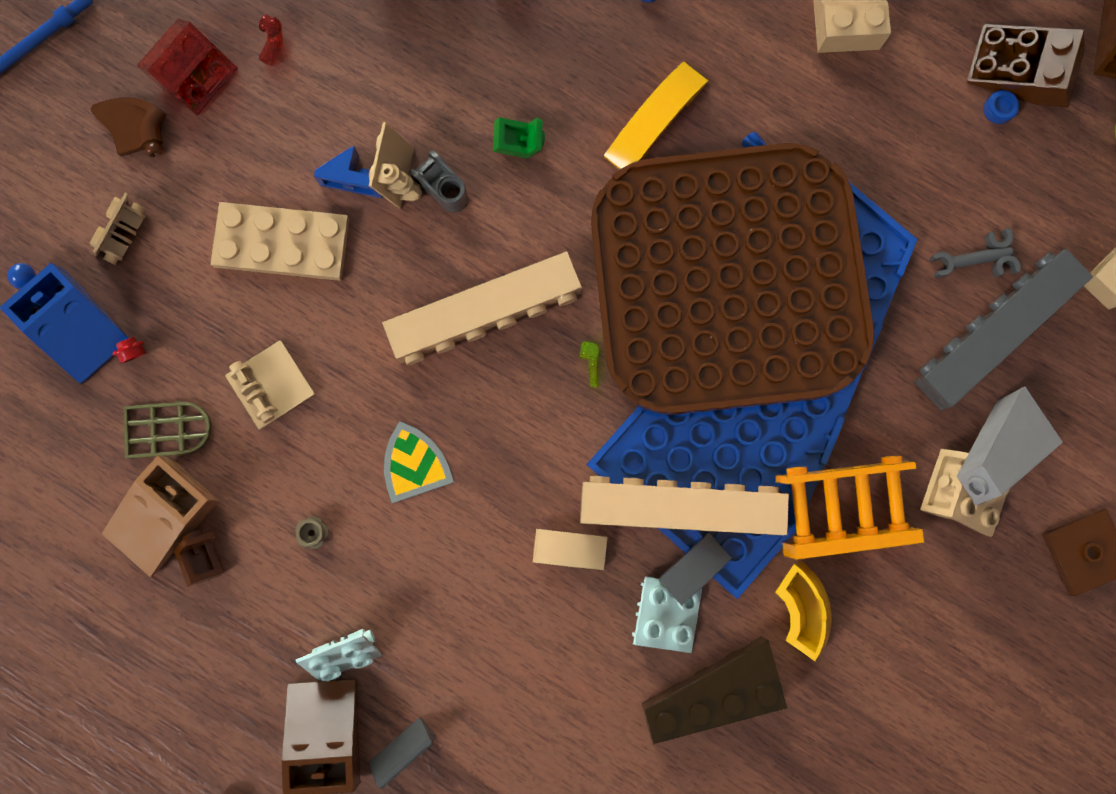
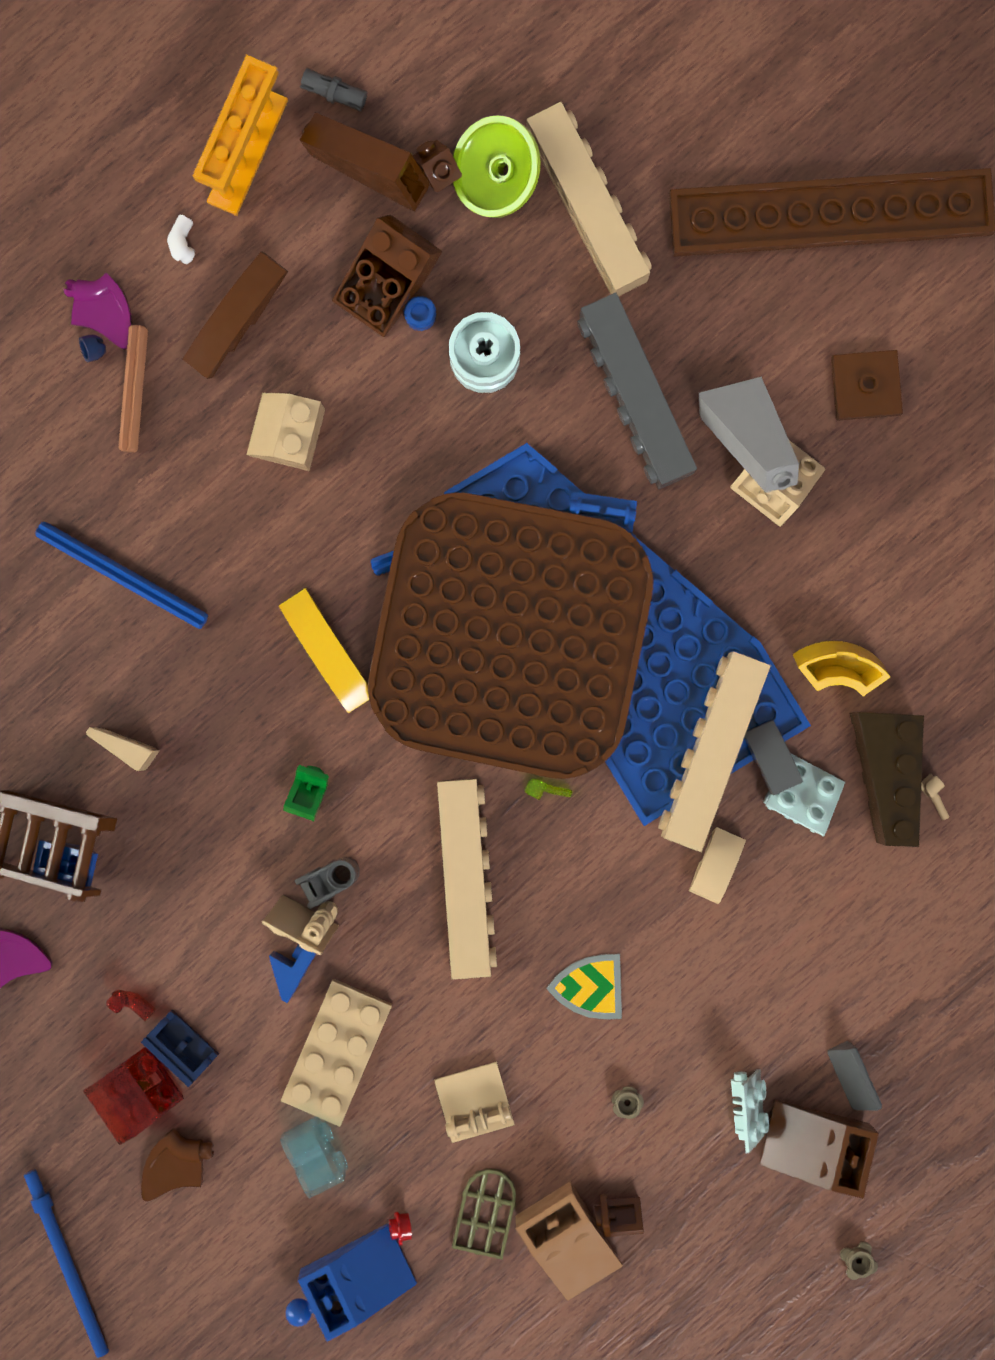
camera: 65 degrees left, 5 degrees up
(117, 212) = (286, 1223): tan hinge -> none
(174, 248) = (313, 1156): none -> clear light blue brick
(242, 95) = (180, 1048): none -> dark blue hinge
(714, 740) = (931, 786): none -> tan hand
(867, 535) = (791, 586): light orange fence -> none
(885, 342) = (606, 508): none -> blue hinge
(989, 172) = (484, 333): none -> light aqua wheel
(998, 251) = (562, 366): dark grey bar -> none

